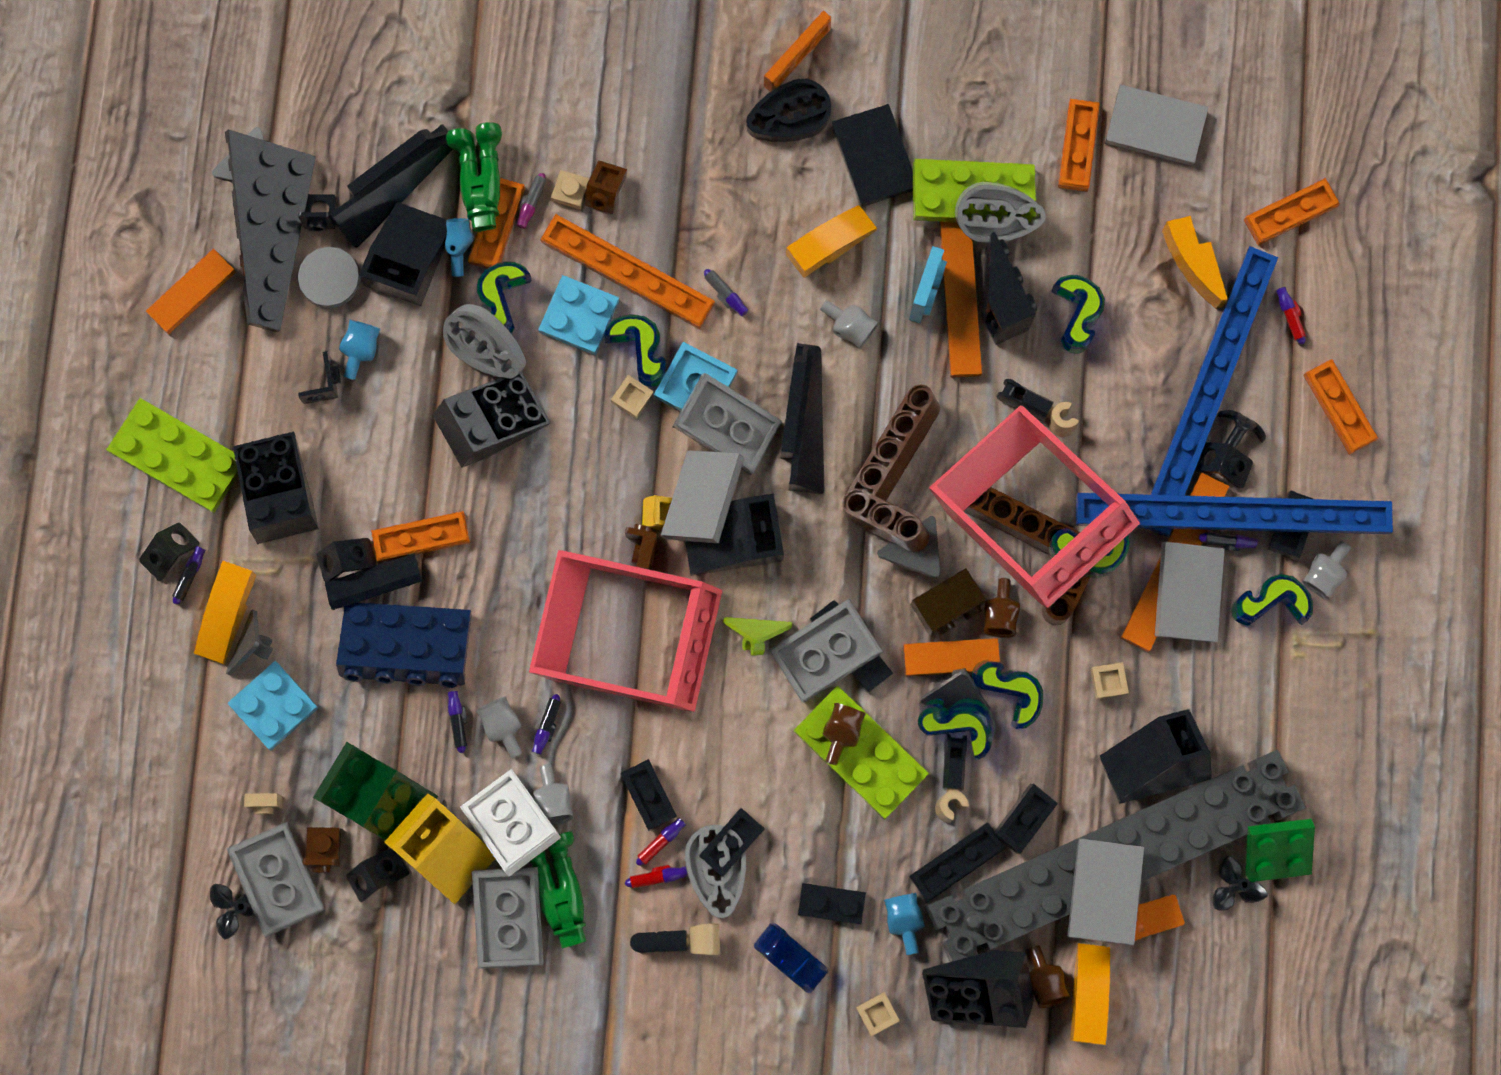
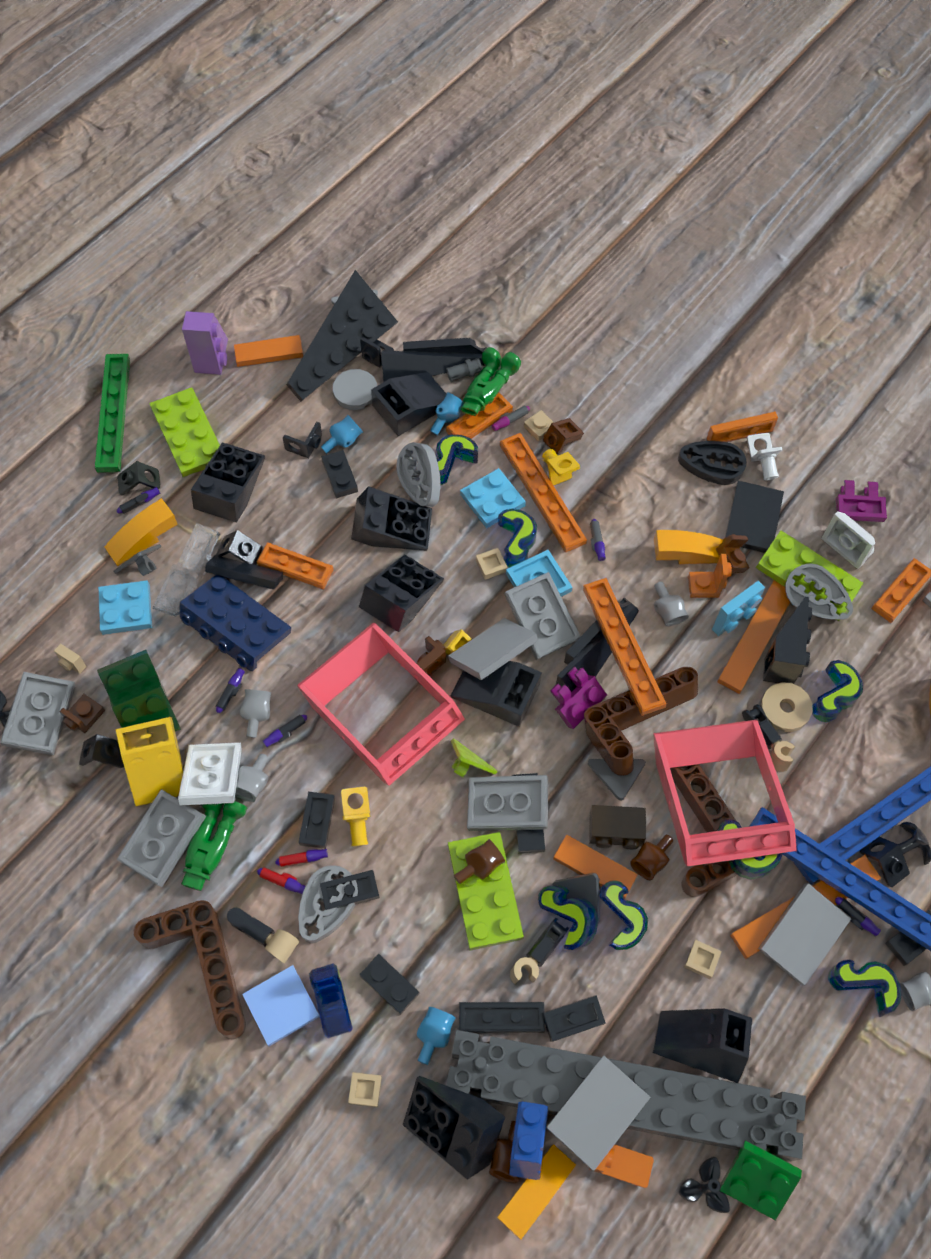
camera: 35 degrees right, 15 degrees down
(72, 488) = (112, 413): none -> green plate
(123, 338) = (205, 342): none -> medium lavender wedge
(312, 622) = (188, 572): none -> clear slope
(389, 395) = (339, 474): none -> black plate
(437, 172) = (465, 369): none -> dark grey pin
(558, 493) = (399, 592): none -> black slope
(630, 233) = (560, 466): none -> yellow bracket
(641, 998) = (208, 956): none -> reddish brown beam
(684, 765) = (356, 817): none -> yellow bracket
(744, 993) = (280, 1005): none -> light blue tile
(828, 492) = (575, 703): none -> magenta plate
(836, 407) = (624, 647): none -> orange tile
(842, 71) = (766, 456): none -> white bracket
(875, 268) = (710, 583): none -> orange bracket
(880, 220) = (731, 547): none -> reddish brown bracket
(981, 72) = (861, 508): none -> magenta plate
(993, 123) = (849, 539): none -> white slope
(1036, 343) = (796, 698): none -> tan tile
(1058, 957) = (528, 1140): none -> blue brick

